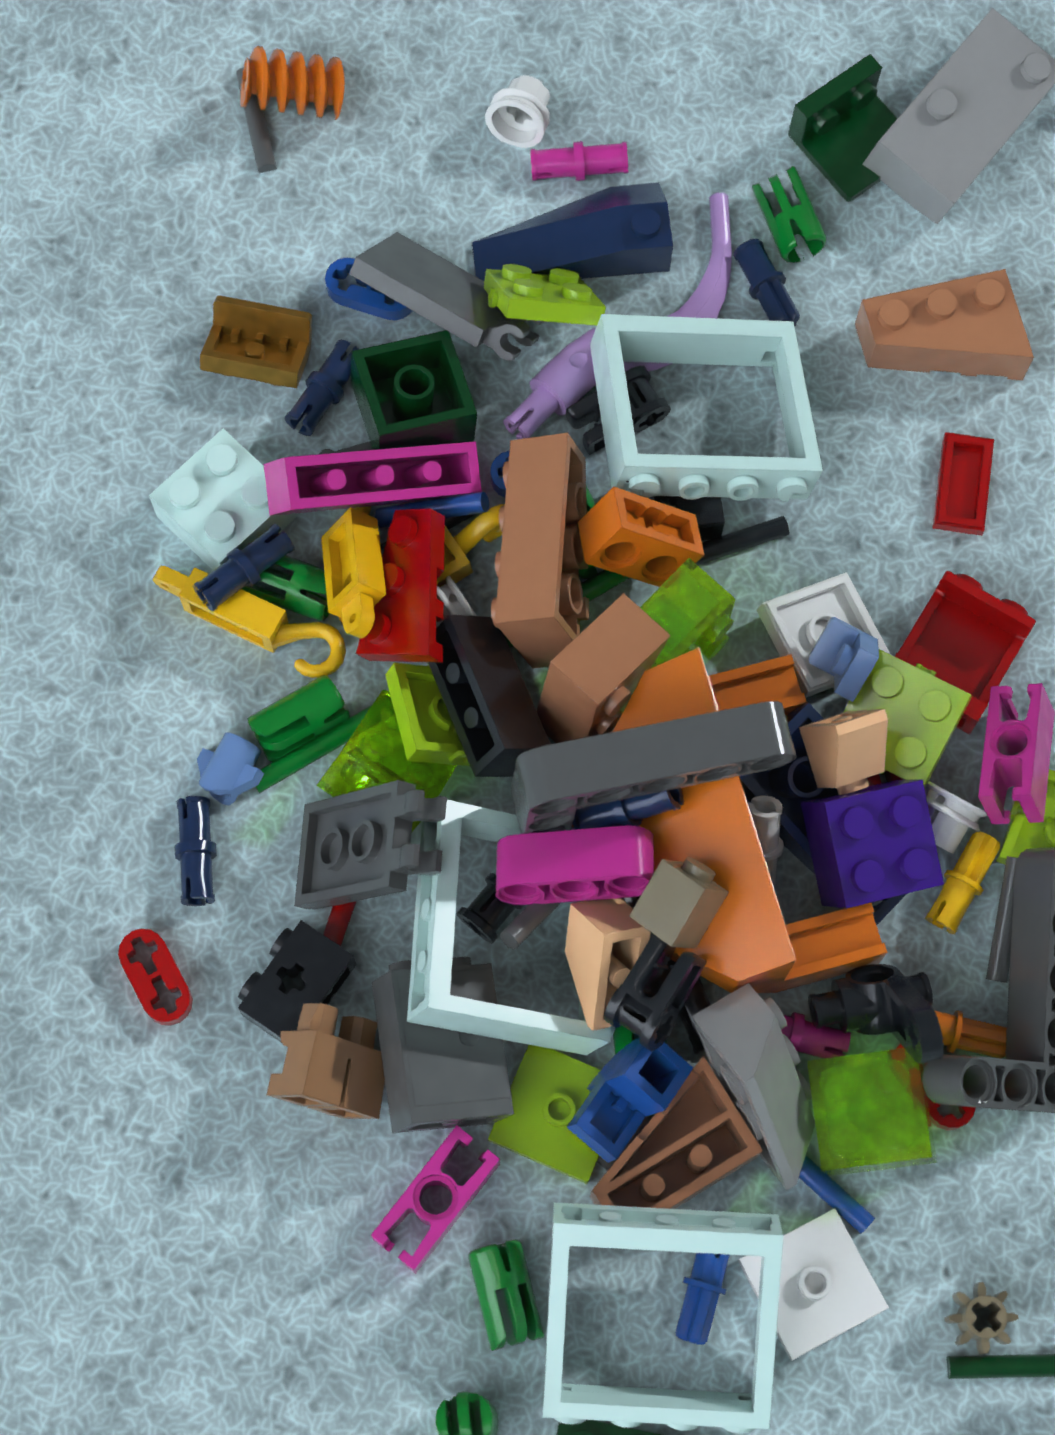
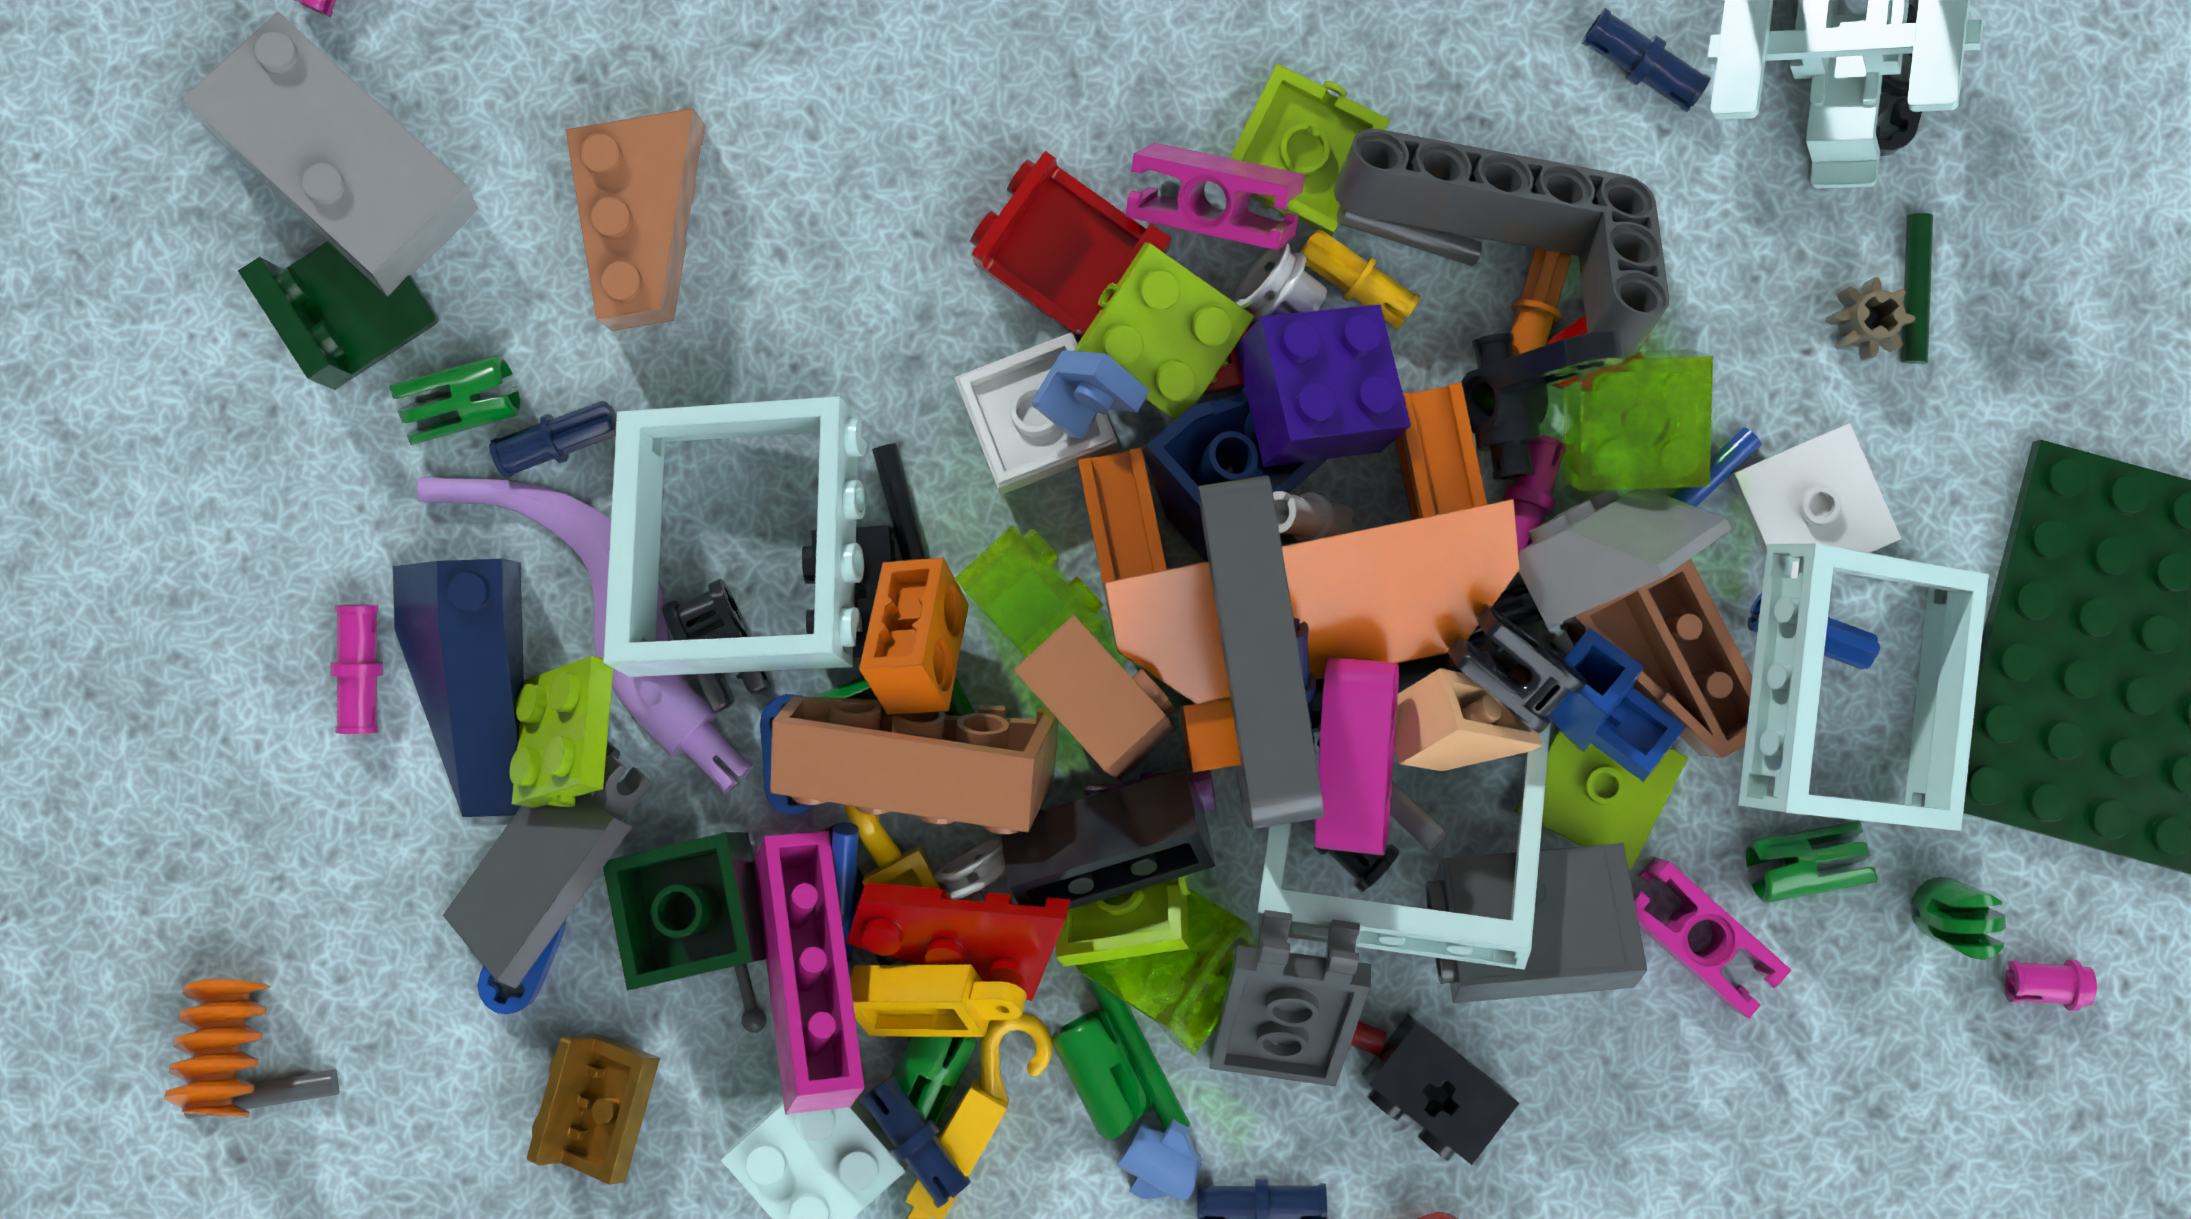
camera: 85 degrees left, 15 degrees up
(322, 389) = (660, 1022): dark blue pin -> none
(328, 1071) = (1555, 1057): medium nougat hips -> none
(519, 112) = (279, 743): white piece -> none
(679, 902) = (1424, 634): dark tan brick -> none
(847, 749) = (1213, 406): light nougat slope -> none
(963, 483) = (843, 217): red tile -> none

